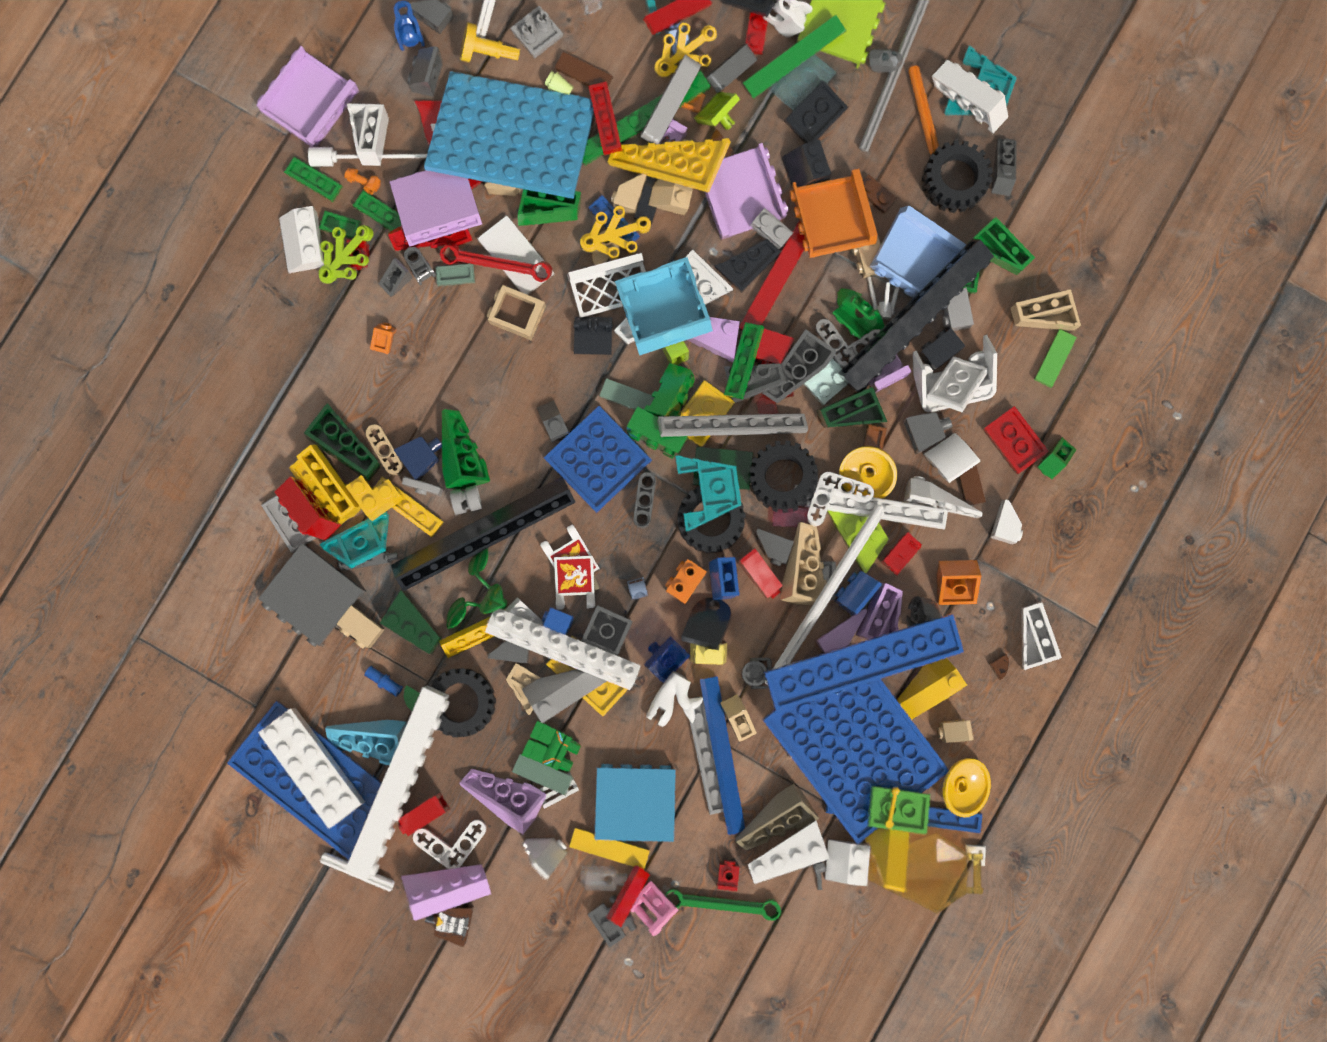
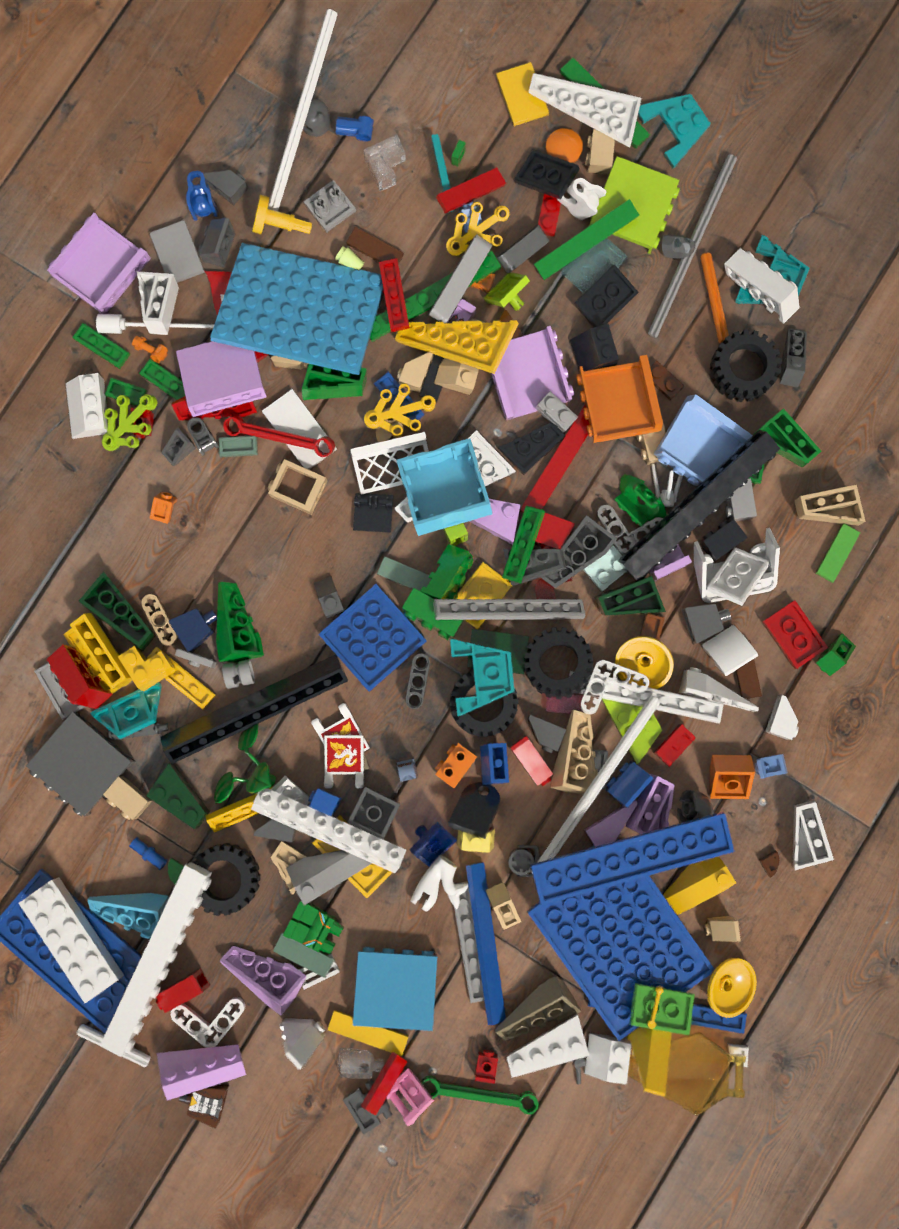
camera: 10 degrees right, 0 degrees up
(385, 82) = (177, 251): none -> light grey tile
(997, 570) = (771, 766): none -> medium blue bracket

